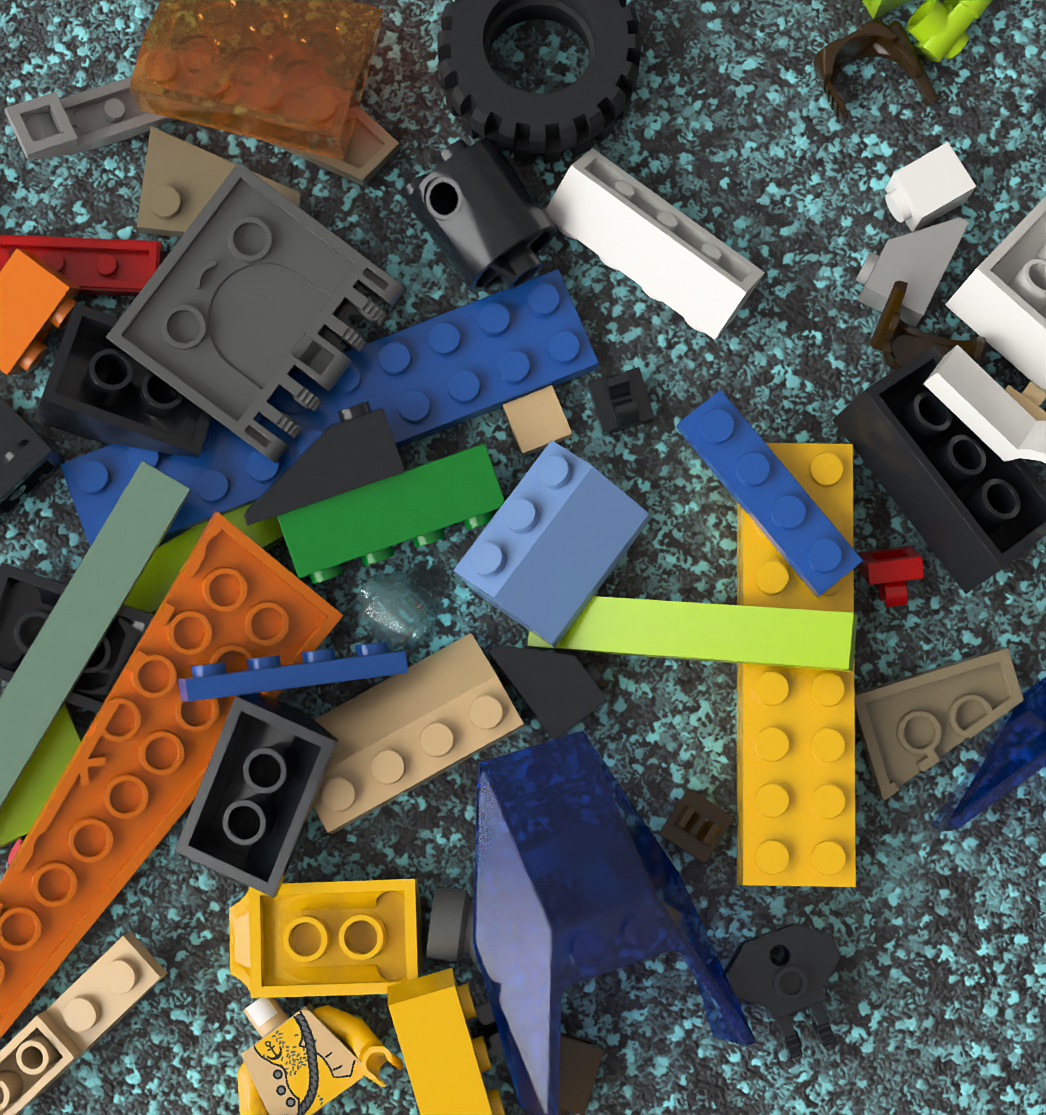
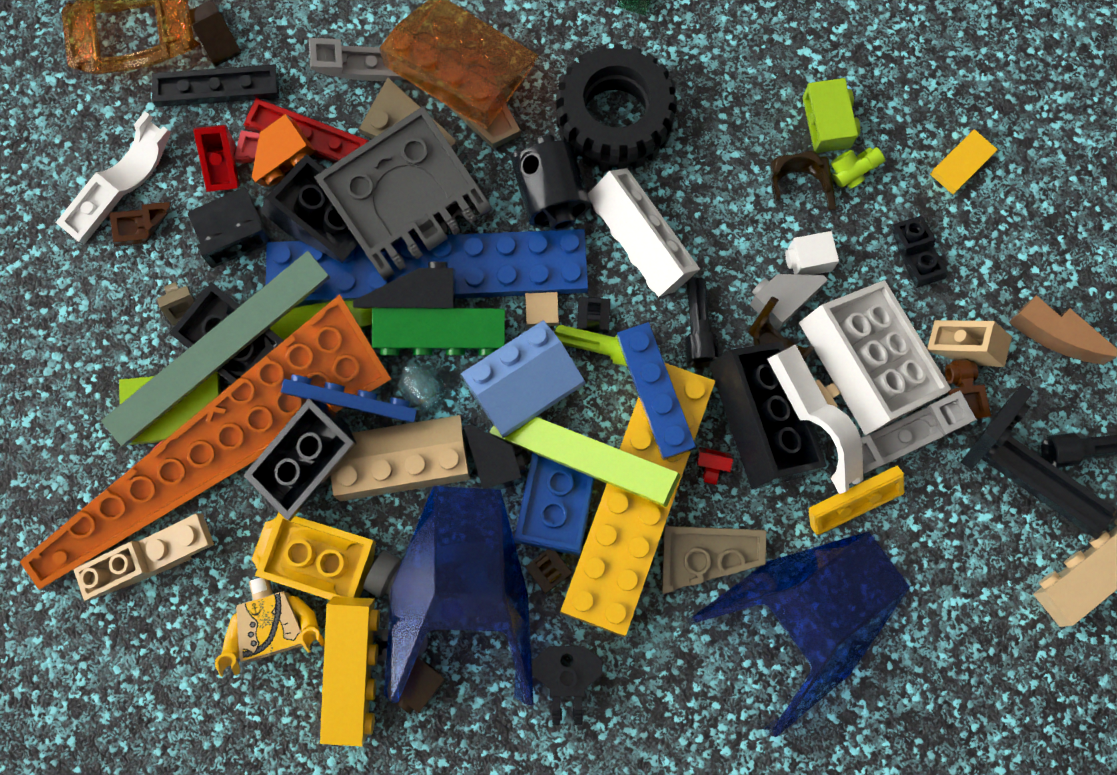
camera: 20 degrees right, 5 degrees down
(637, 446) = (591, 342): none -> lime piece
(671, 726) = (554, 507): none -> blue tile
(806, 389) = (701, 343): none -> black piece

